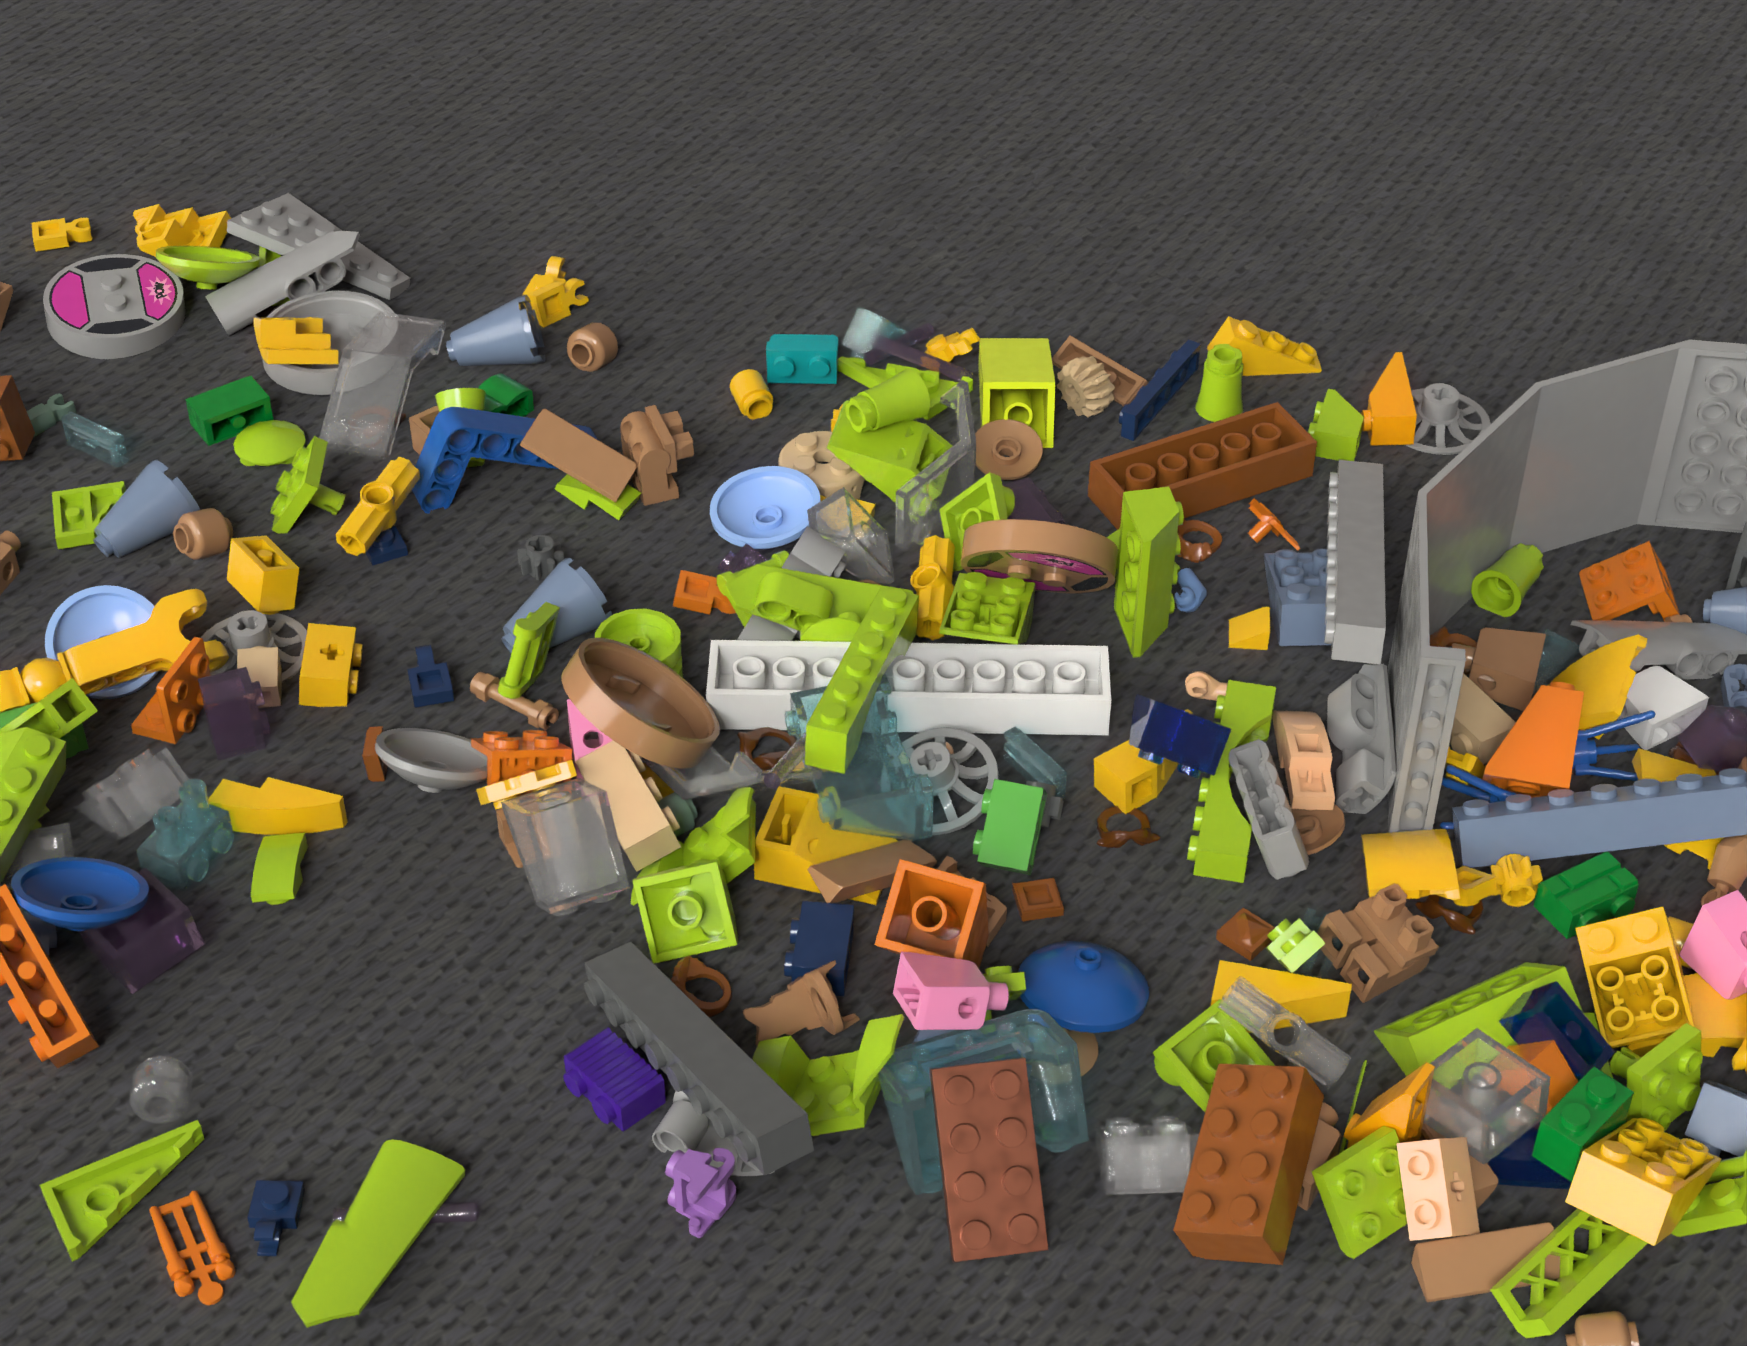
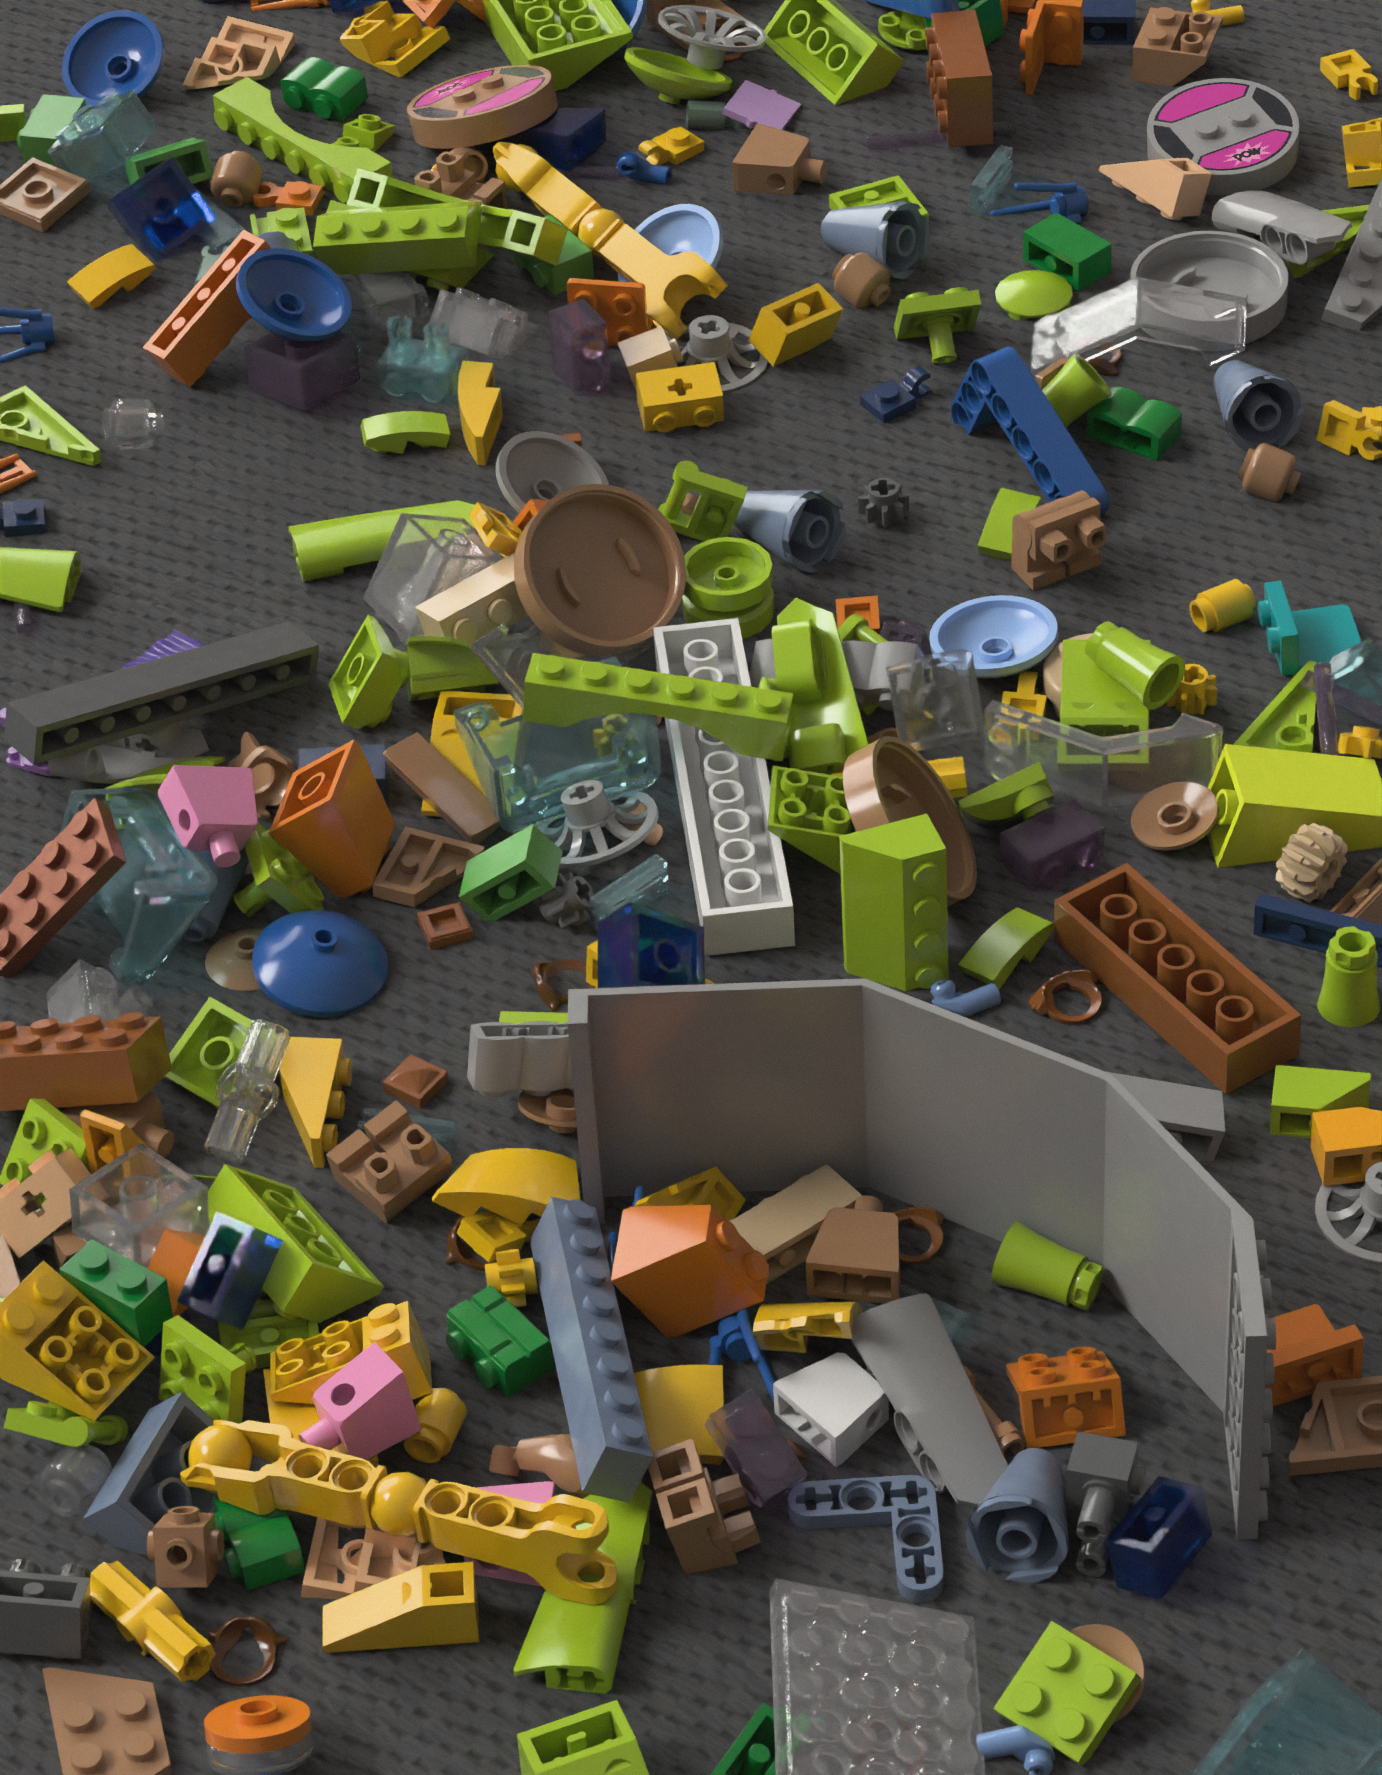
camera: 85 degrees right, 0 degrees up
(46, 416) = (1029, 144): sand green bar -> none
(152, 406) = (1068, 200): none -> blue plant
(164, 340) = (1170, 185): none -> light nougat slope
(207, 264) = (1304, 166): lime dish -> none
(294, 341) = (1178, 253): yellow slope -> none
(378, 506) = (904, 366): yellow piece -> none
(429, 681) = (663, 466): dark blue plate -> none
(450, 897) = (331, 544): none -> lime panel
(579, 455) = (1013, 473): medium nougat slope -> none
(691, 969) = (270, 700): dark orange piece -> none
(786, 764) = (489, 659): bar -> none
(1267, 523) = (1104, 1048): orange piece -> none
(1293, 944) = (370, 1092): slope -> none

